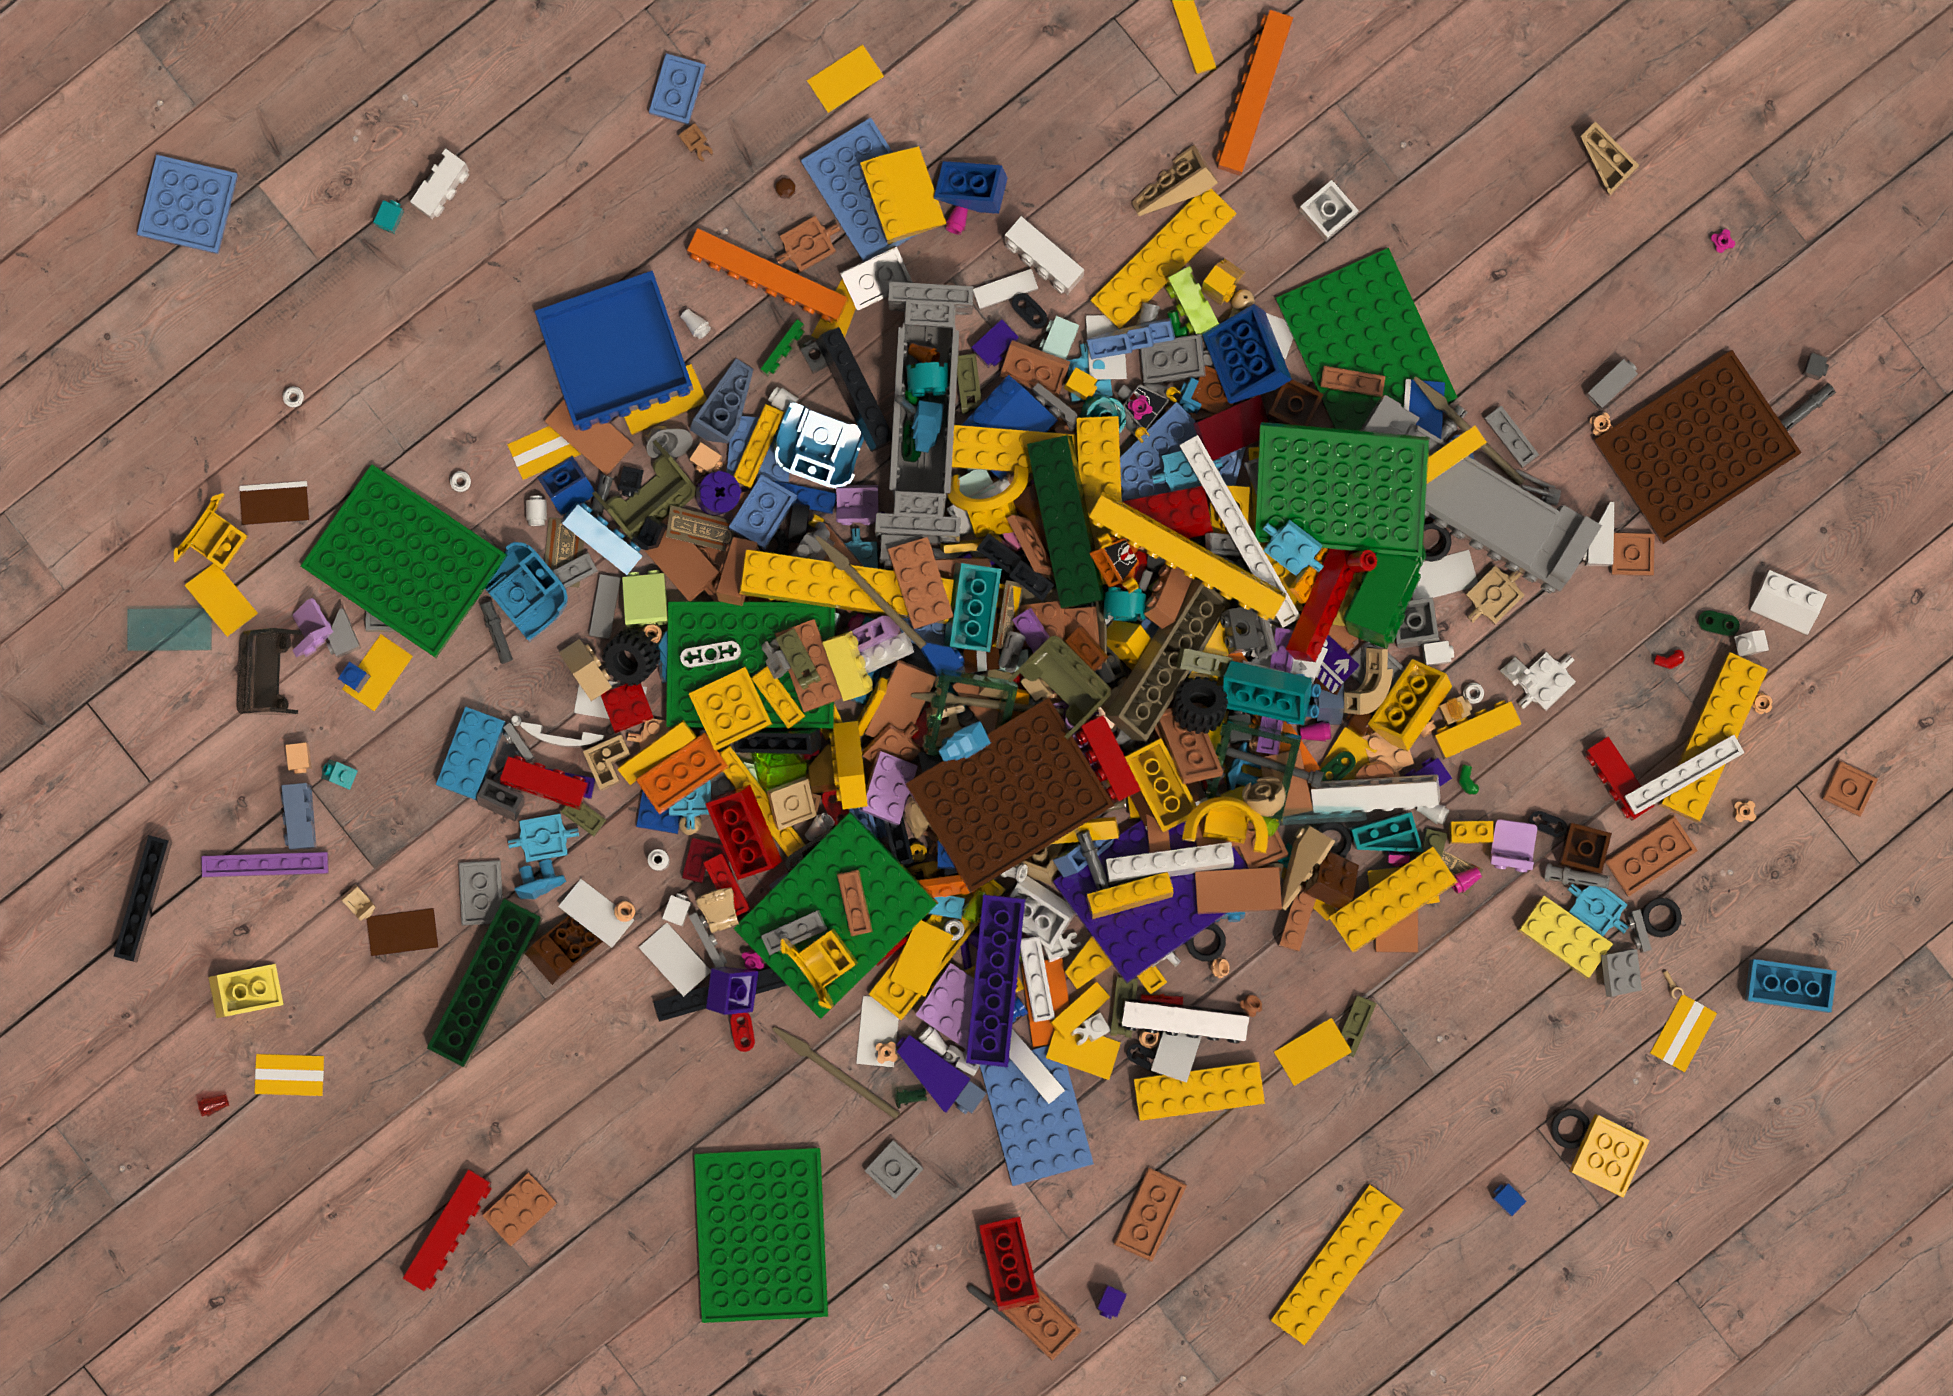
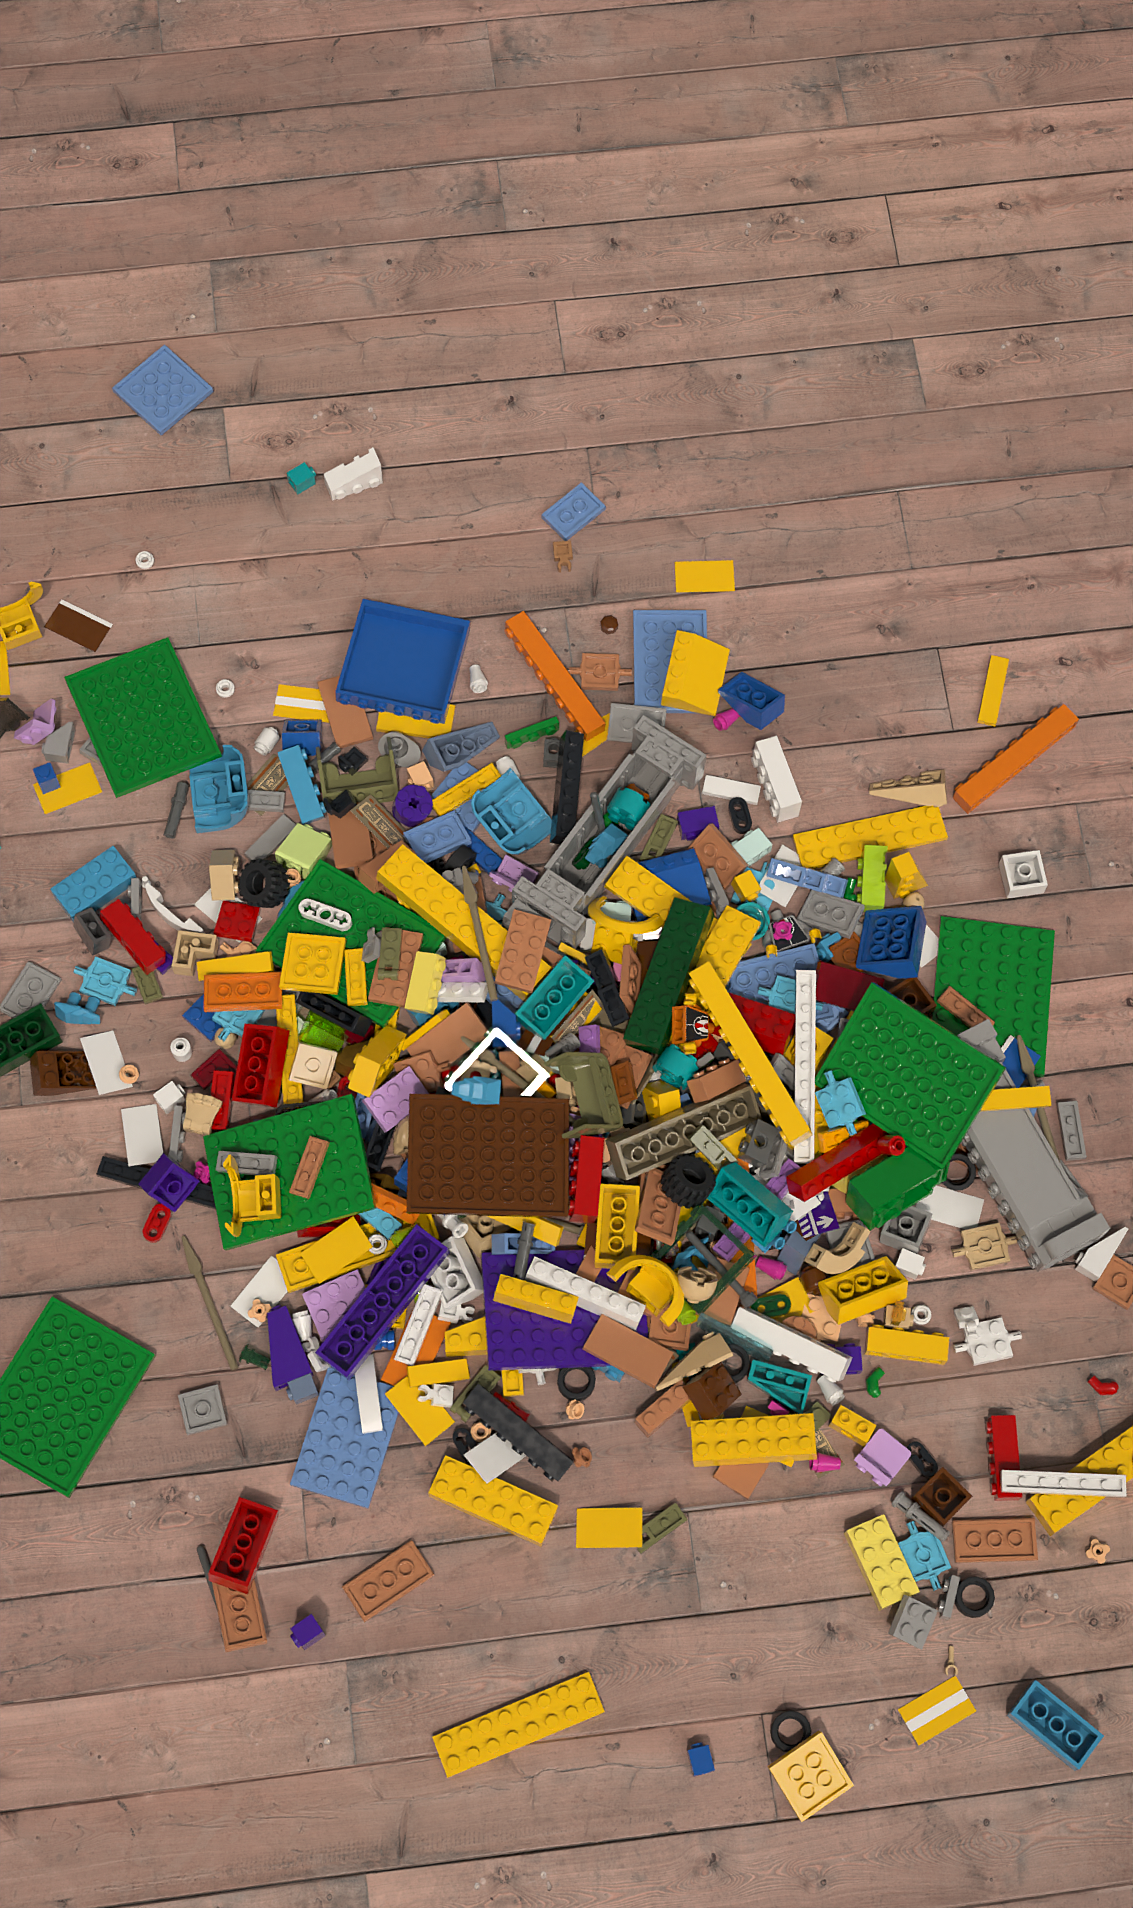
camera: 30 degrees right, 15 degrees down
(916, 846) = (389, 1163): yellow plate -> none

